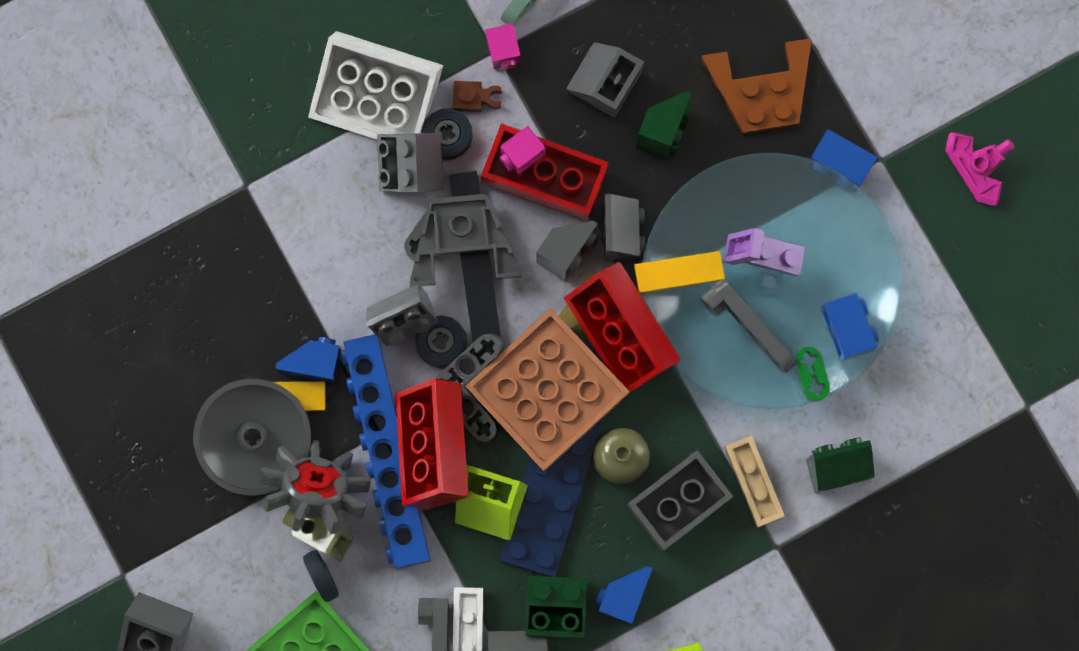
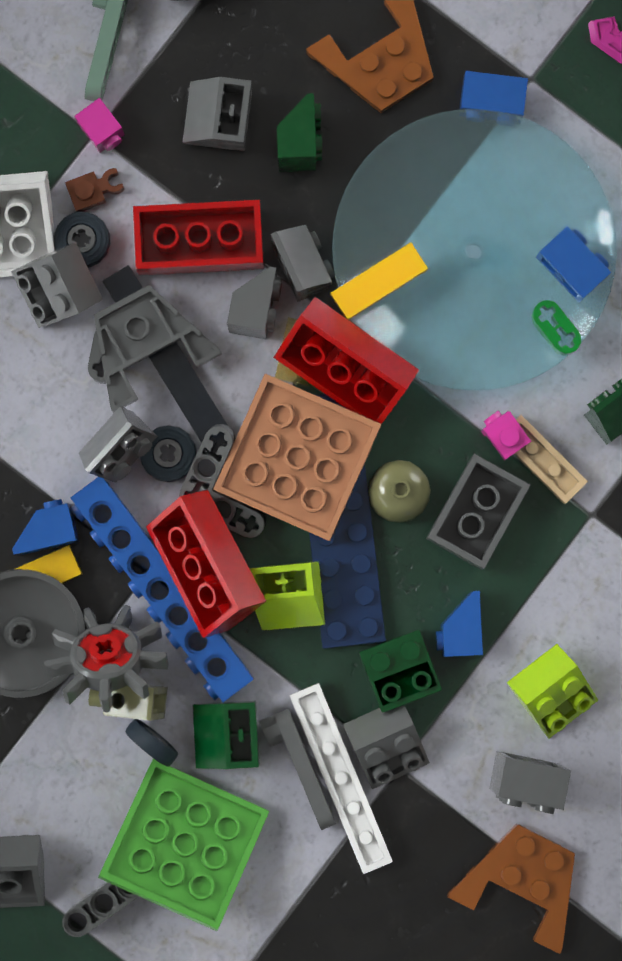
camera: 25 degrees left, 5 degrees up
(386, 597) = (226, 735): none -> dark green slope
(522, 151) = (167, 225): dark pink brick -> none
(724, 297) = (435, 287): dark grey beam -> none
(731, 445) = (505, 433): none -> dark pink bracket
(764, 252) = (457, 224): medium lavender bracket -> none

